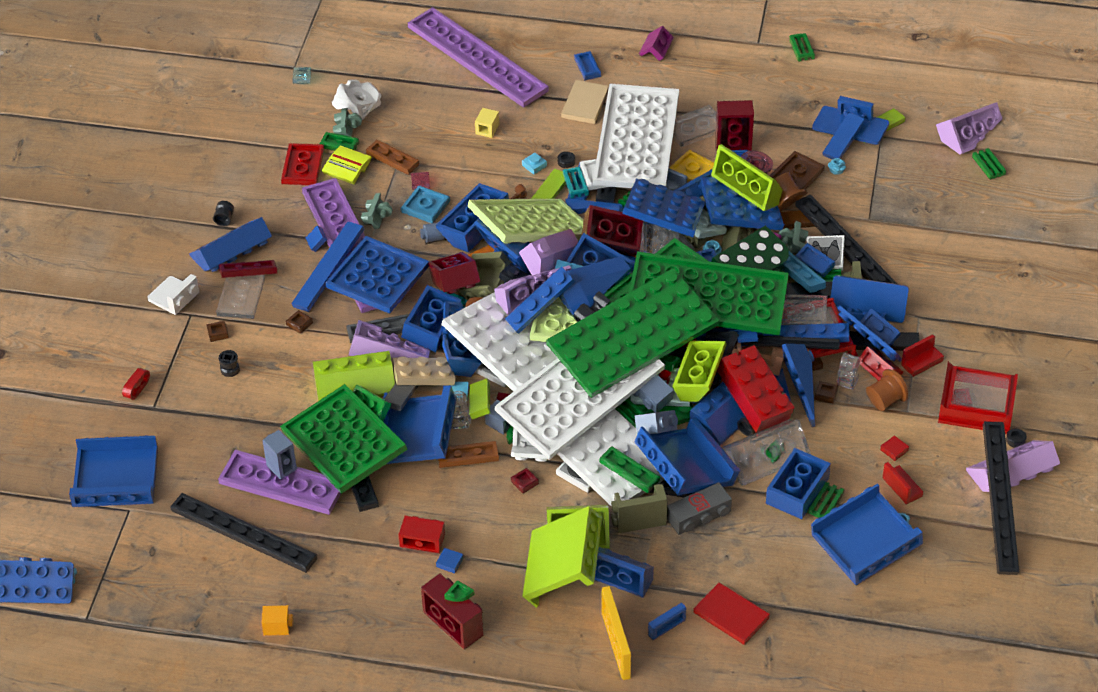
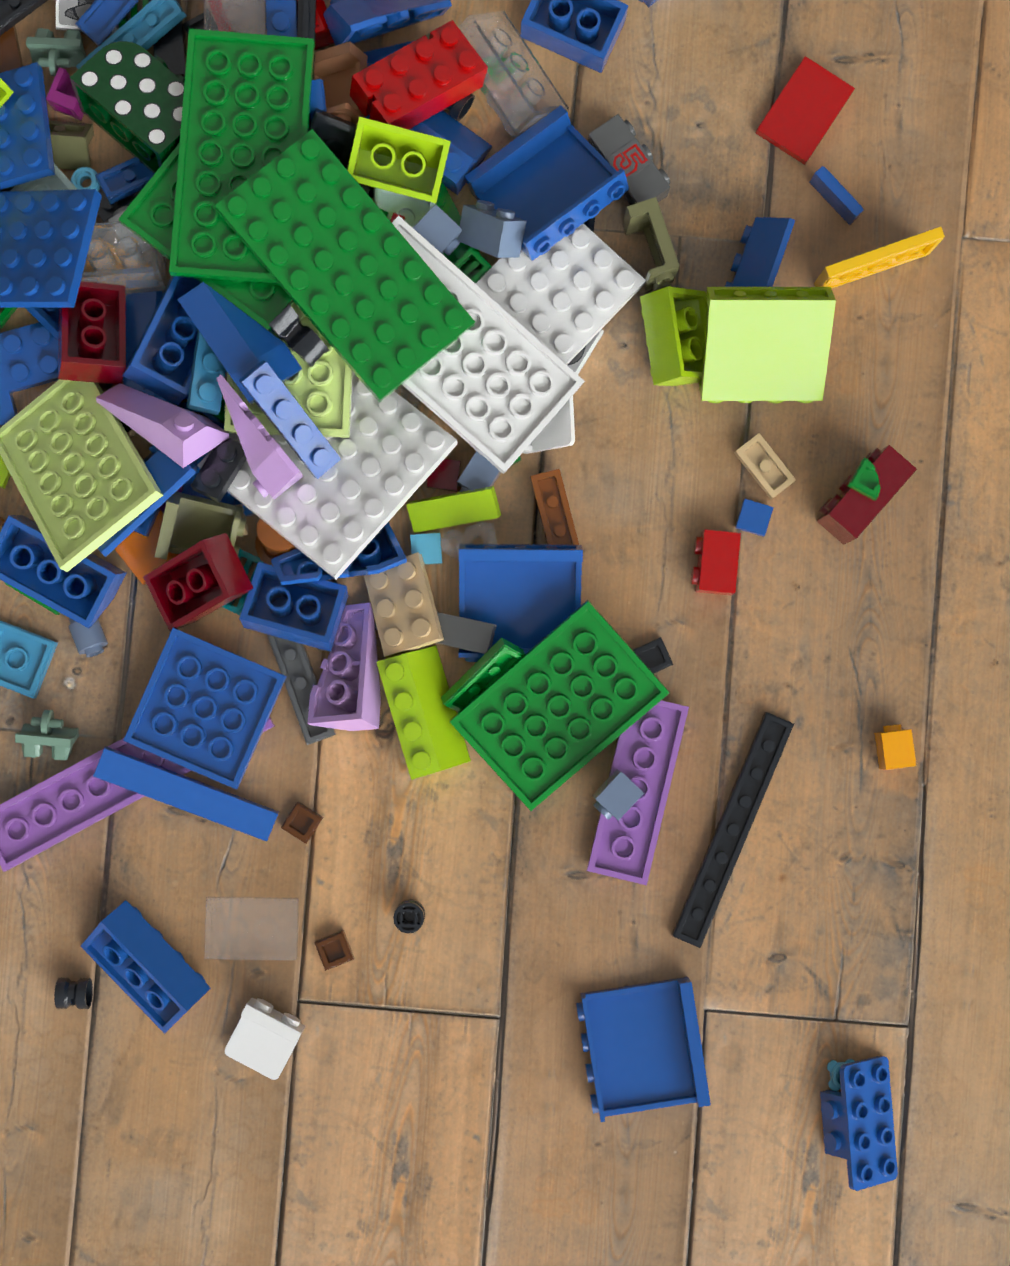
camera: 100 degrees left, 40 degrees up
(136, 383) = (464, 1055): red beam -> none
(248, 268) = (200, 926): dark red tile -> none
(316, 238) = (119, 826): blue tile -> none
(483, 567) = (765, 466): none -> tan plate
(524, 480) = (592, 427): dark red tile -> none
(629, 469) = (583, 264): green tile -> none

